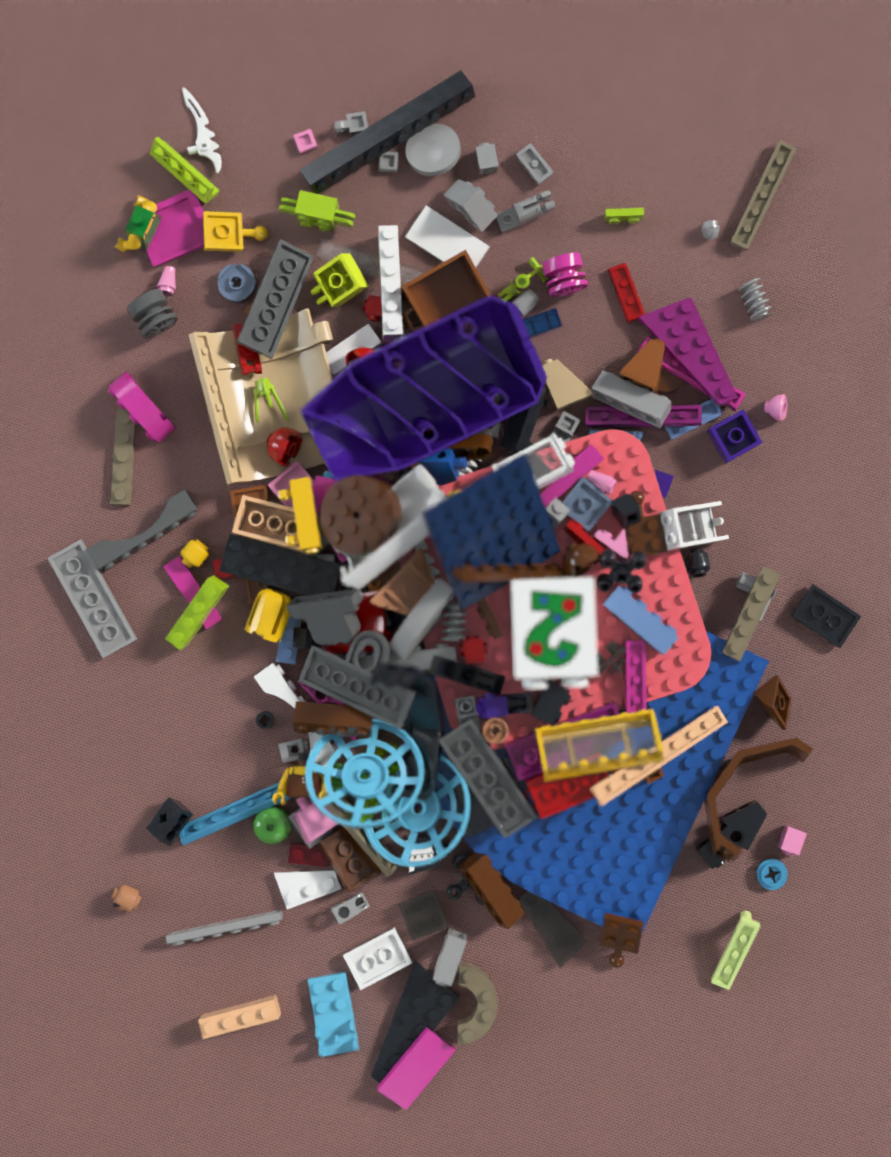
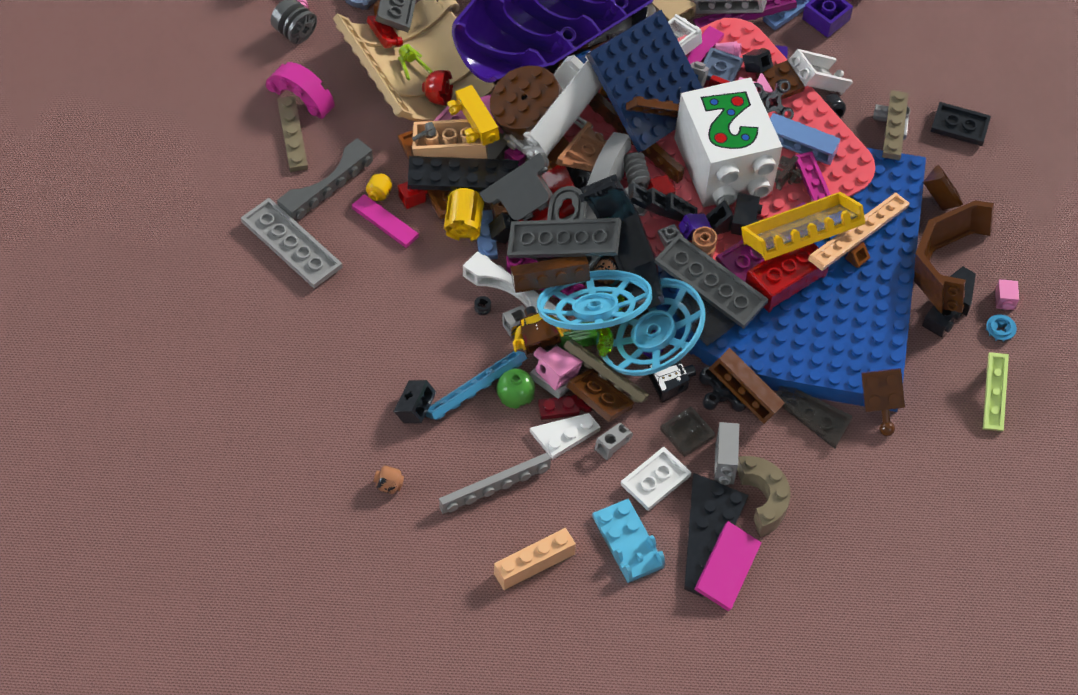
camera: 20 degrees left, 30 degrees down
(197, 612) = (395, 225): lime brick -> none
(255, 515) = (429, 131): none -> dark grey hand

